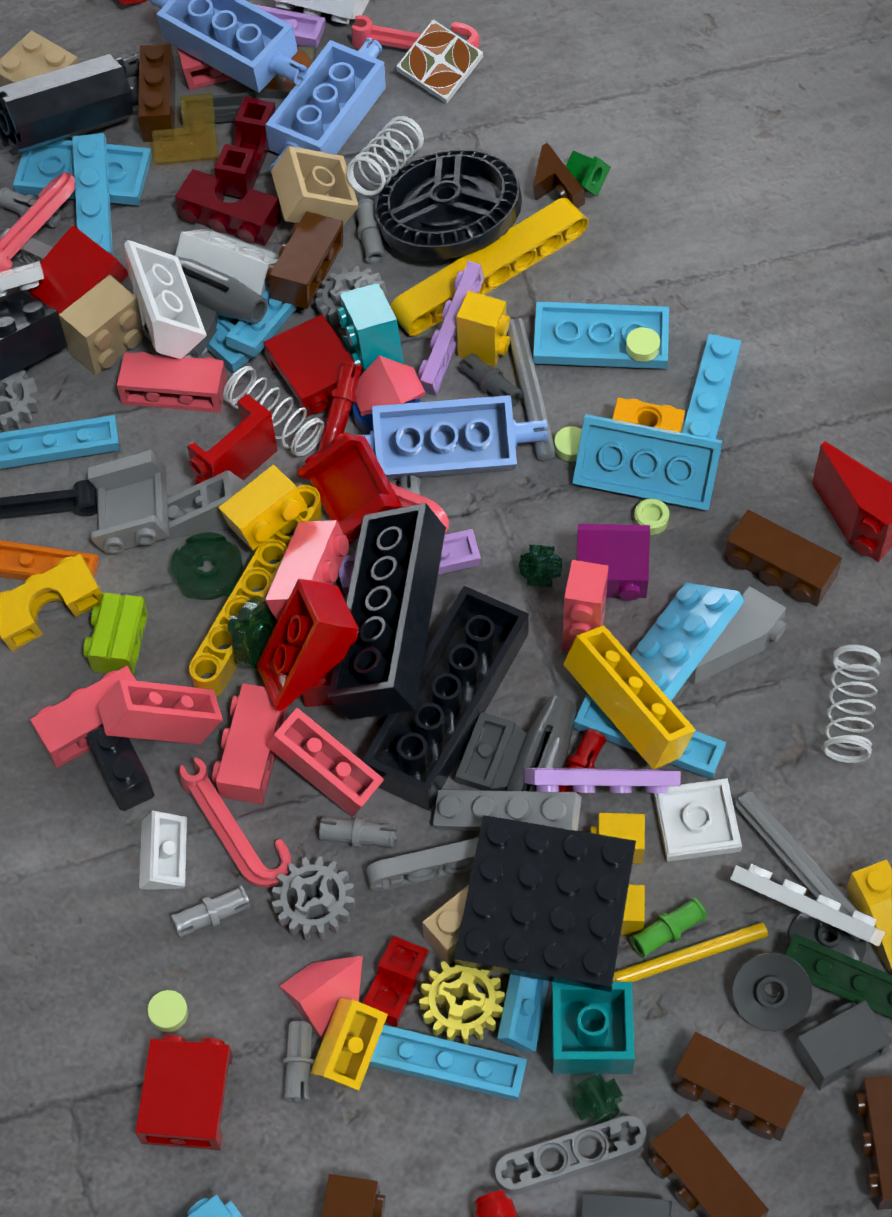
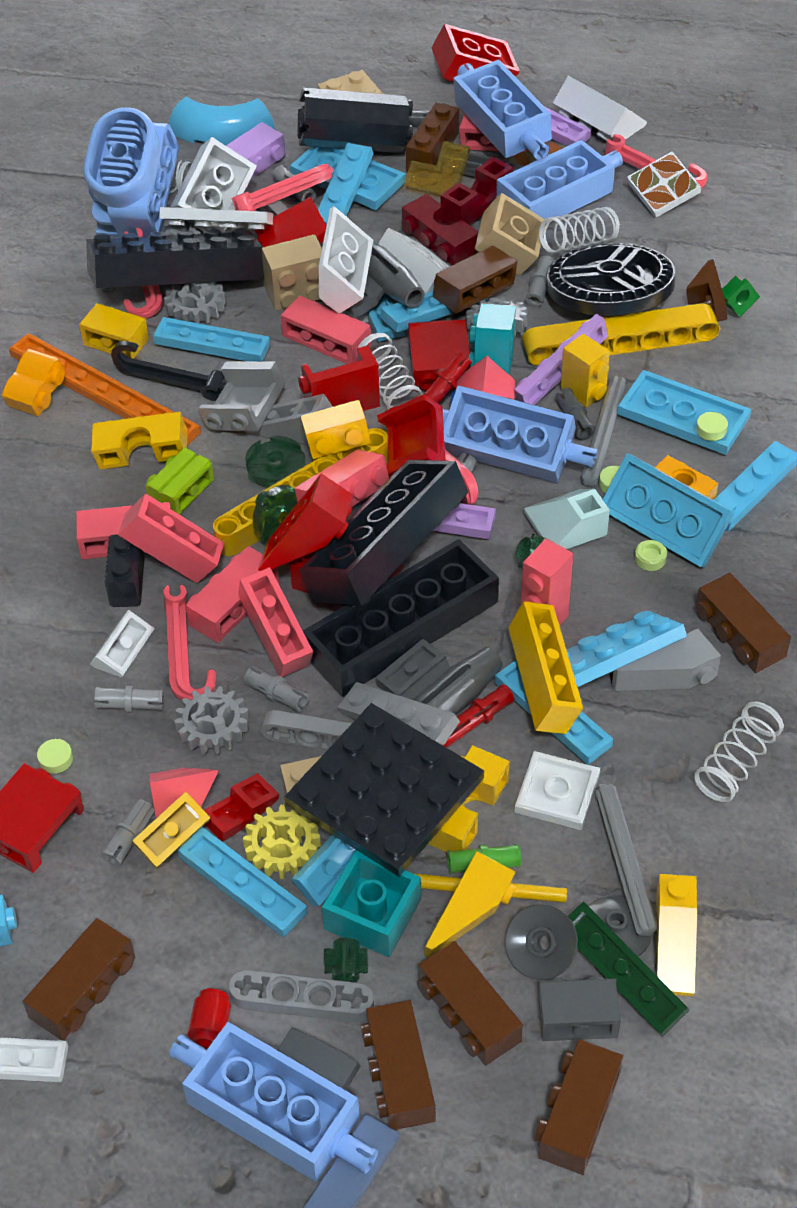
camera: 25 degrees right, 10 degrees down
(552, 508) = (570, 518): none -> light aqua slope
(586, 779) = (501, 726): lavender plate -> none
(623, 550) = (598, 568): magenta slope -> none
(689, 973) = (474, 900): none -> yellow slope
(822, 909) = (617, 891): white plate -> none

